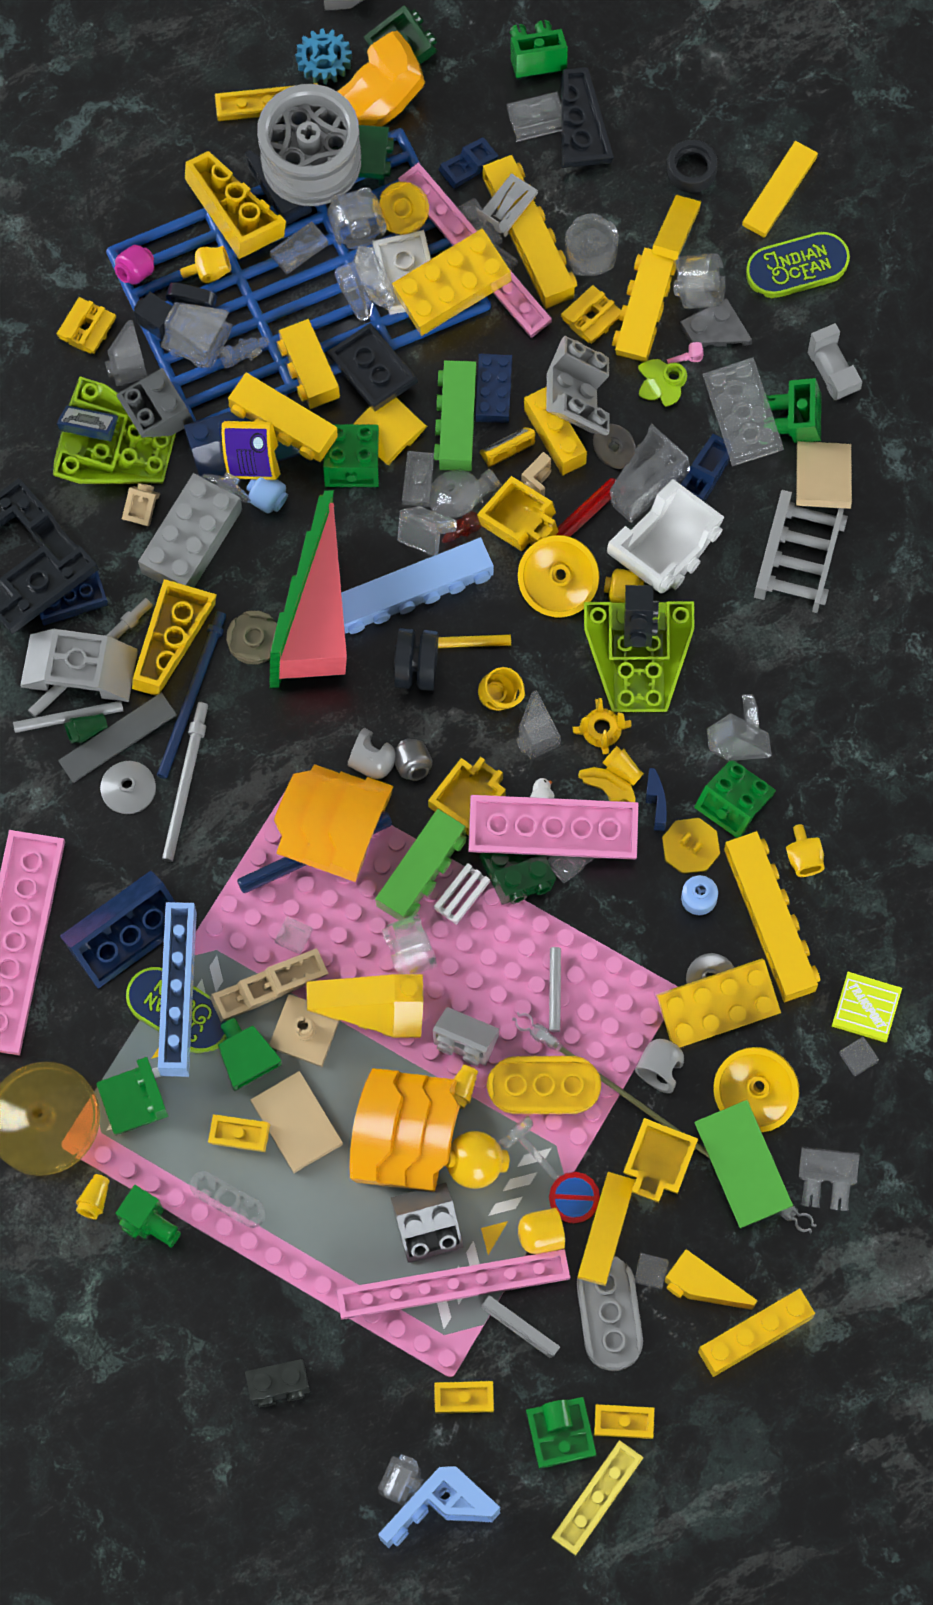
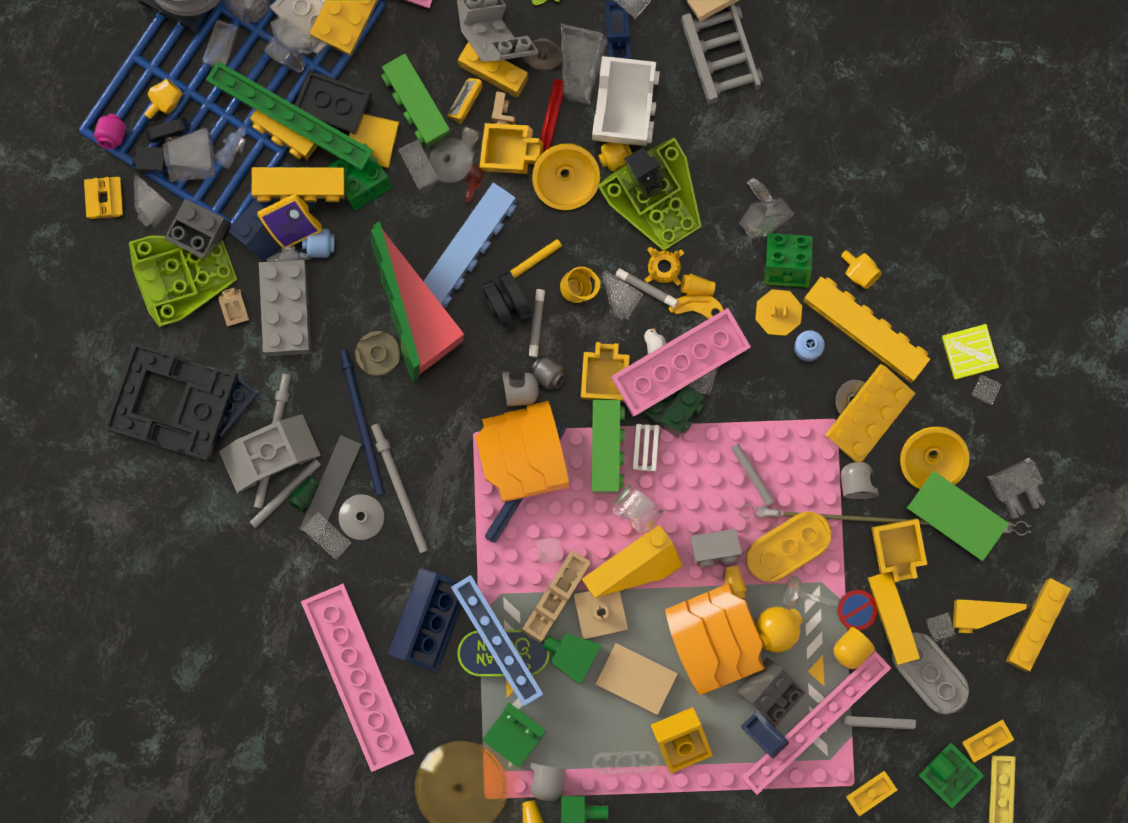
camera: 30 degrees left, 10 degrees up
(79, 782) = (326, 535): none -> clear plate
(87, 423) = (157, 271): slope -> none
(132, 1165) = (547, 782): none -> light grey helmet
(172, 629) = (317, 382): yellow wedge -> none
(235, 210) = (153, 44): yellow wedge -> none
(239, 1133) = (603, 712): yellow plate -> none
(300, 1213) = (681, 740): none -> yellow slope
(319, 350) = (289, 116): none -> green plate
(390, 1261) = (764, 734): none -> dark blue tile
(422, 528) = (448, 200): clear panel -> none
(433, 705) = (536, 323): none -> light grey bar
(493, 388) = (428, 63): dark blue piece -> none
(569, 737) = (647, 288): none -> light grey bar
(656, 795) = (732, 291): dark blue slope -> none

